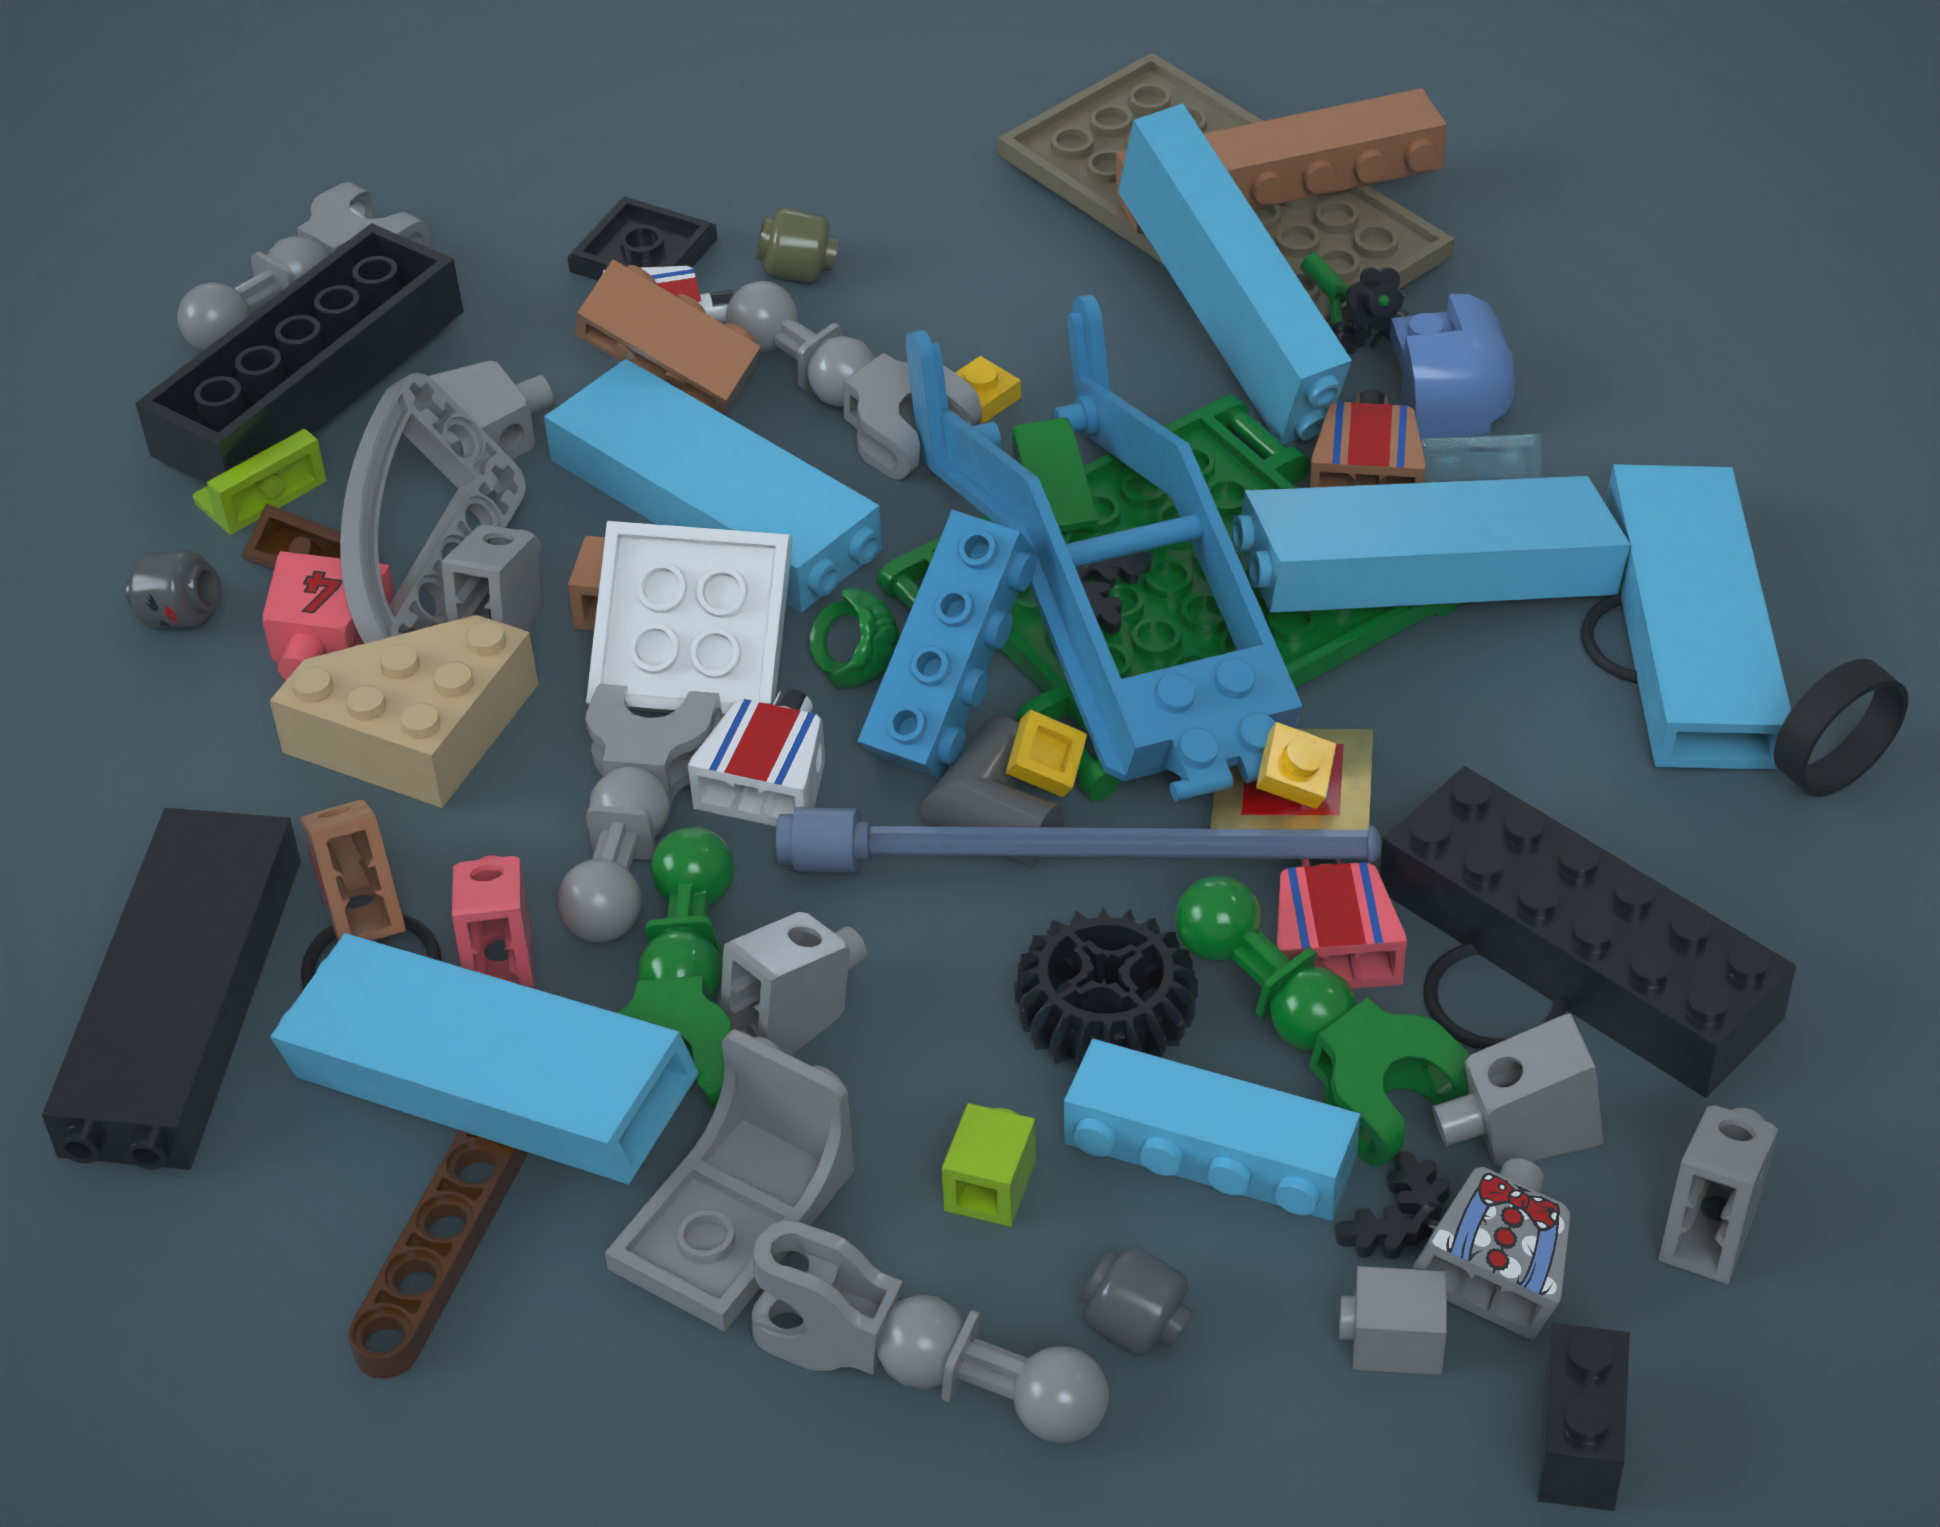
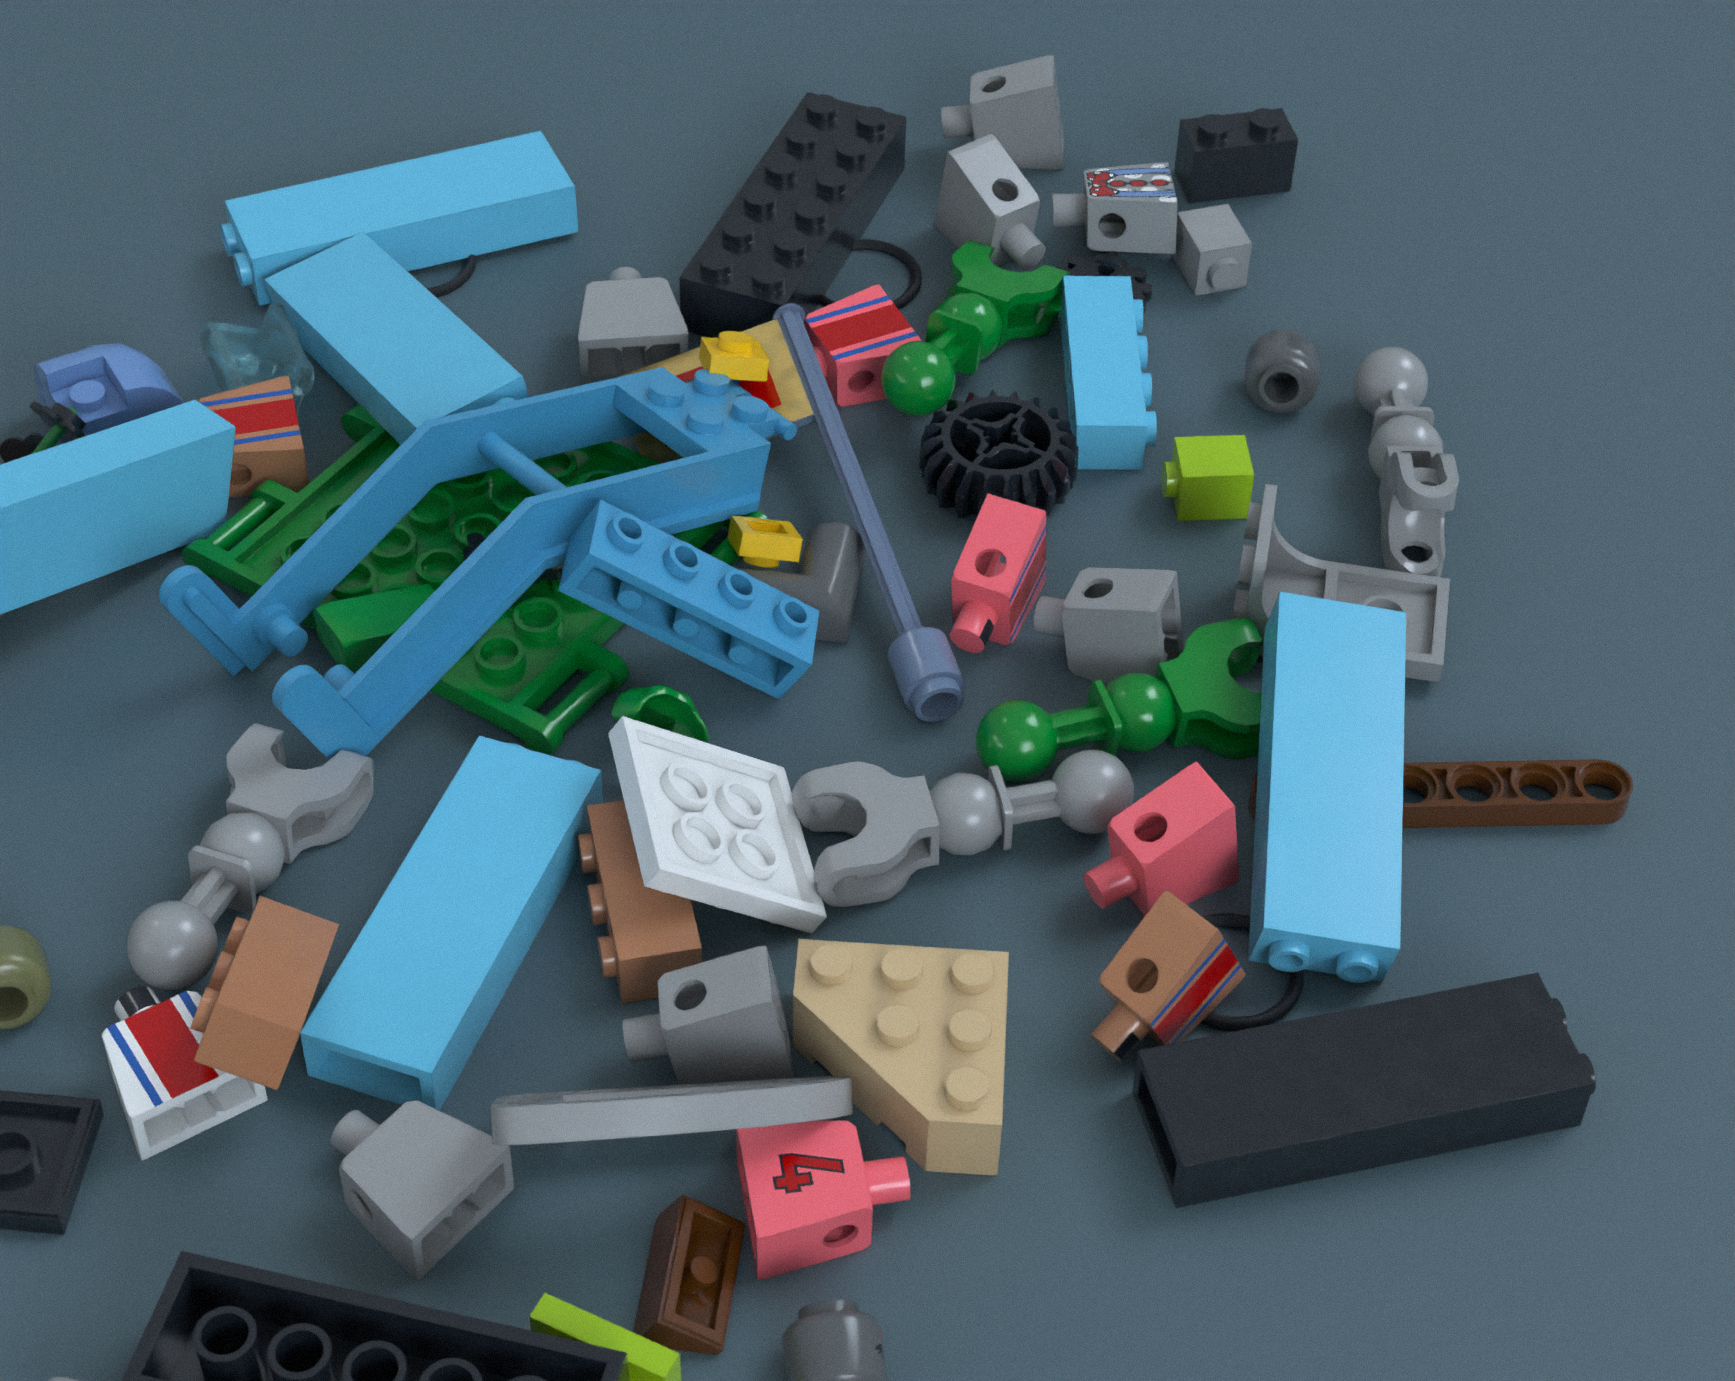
camera: 115 degrees left, 0 degrees up
(760, 760) = (843, 726): white torso -> none
(909, 915) = (993, 596): none -> coral torso
(993, 385) = (201, 760): yellow plate -> none
(1433, 737) = (628, 325): none -> light grey torso
(1818, 710) = (562, 81): black tyre -> none

